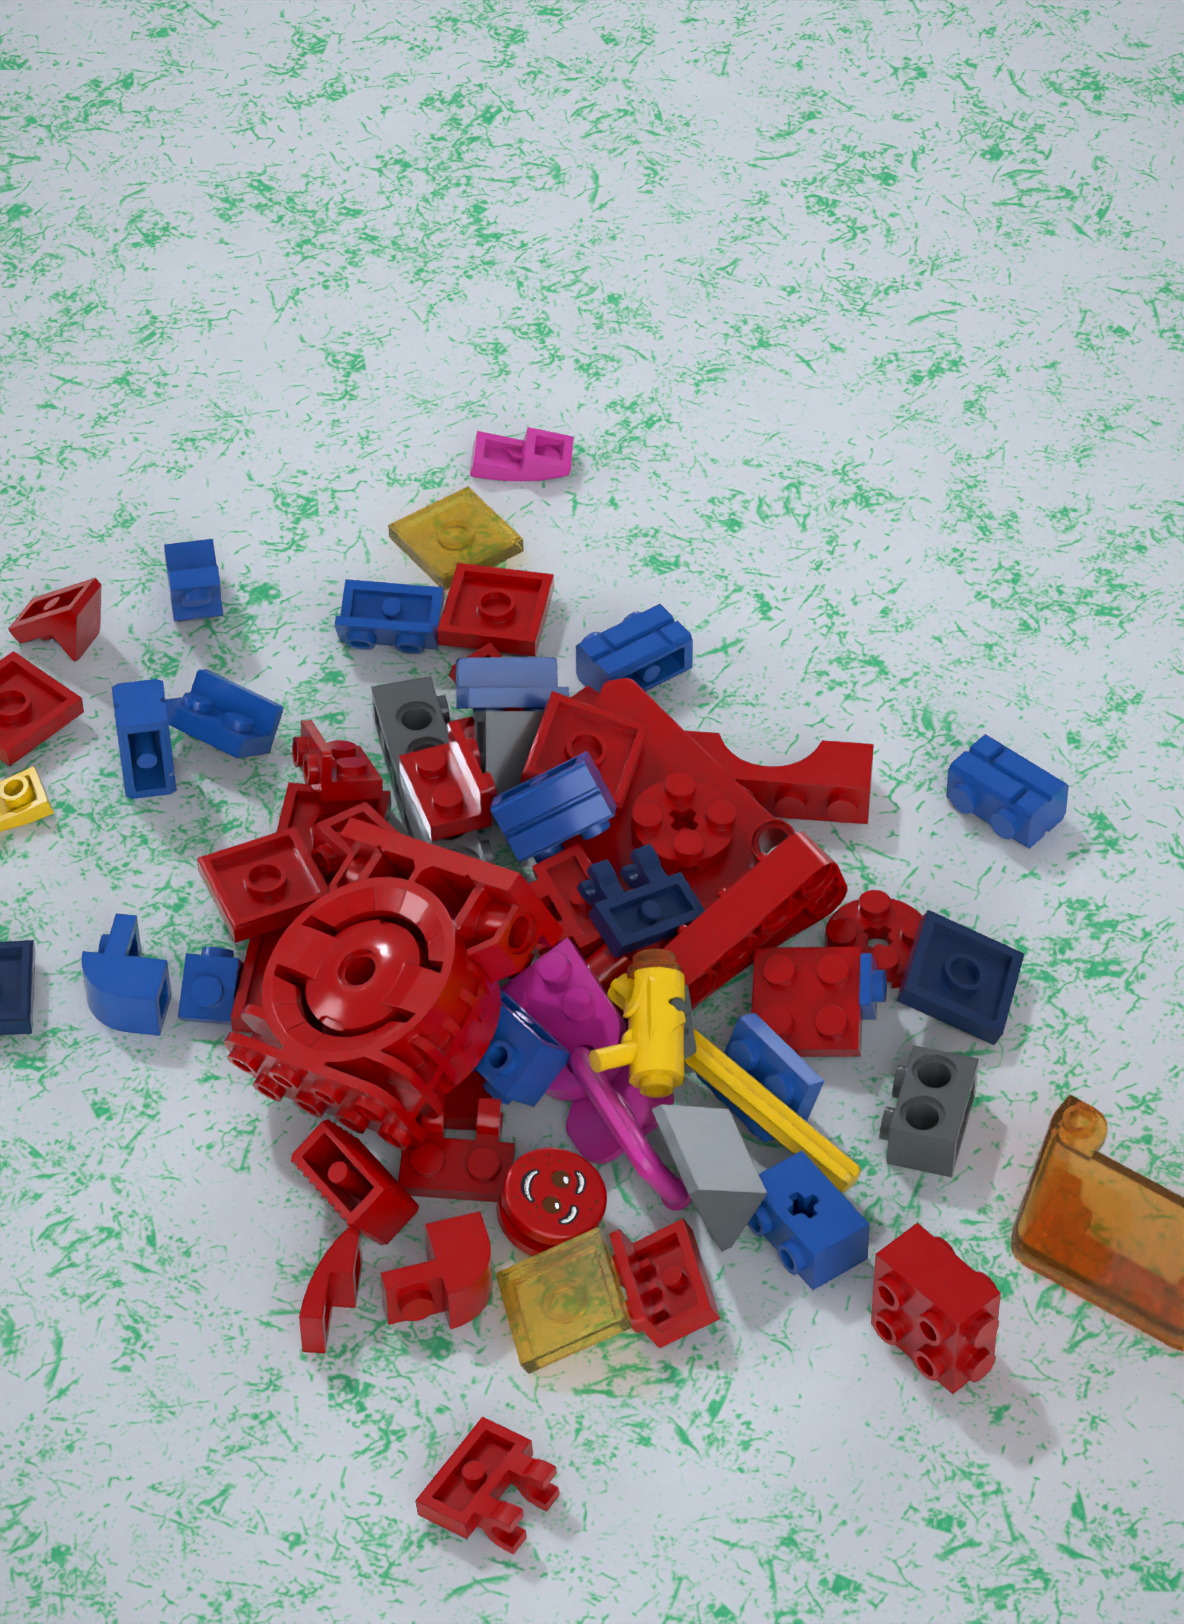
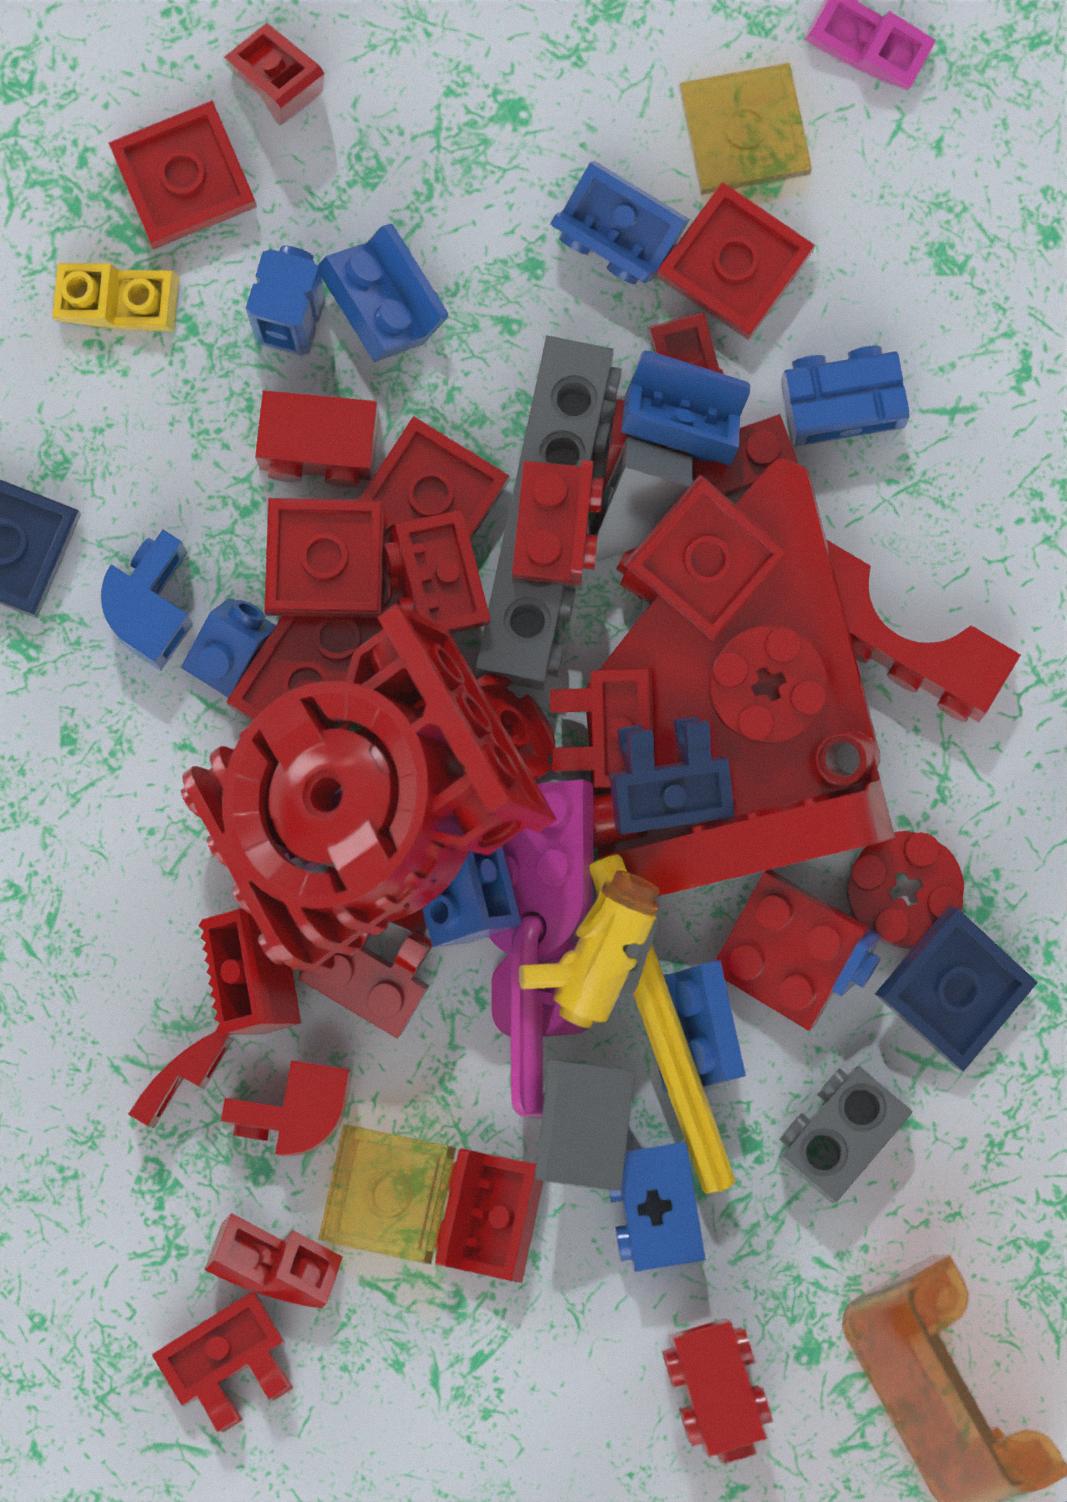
camera: 25 degrees right, 35 degrees up
(193, 580) = (436, 82): blue brick -> none
(211, 820) = (317, 437): none -> red brick
(335, 768) = (467, 428): red bracket -> none
(508, 1391) = (284, 1269): none -> red slope
(550, 1199) = (427, 1077): red head -> none
(554, 809) = (638, 622): blue brick -> none

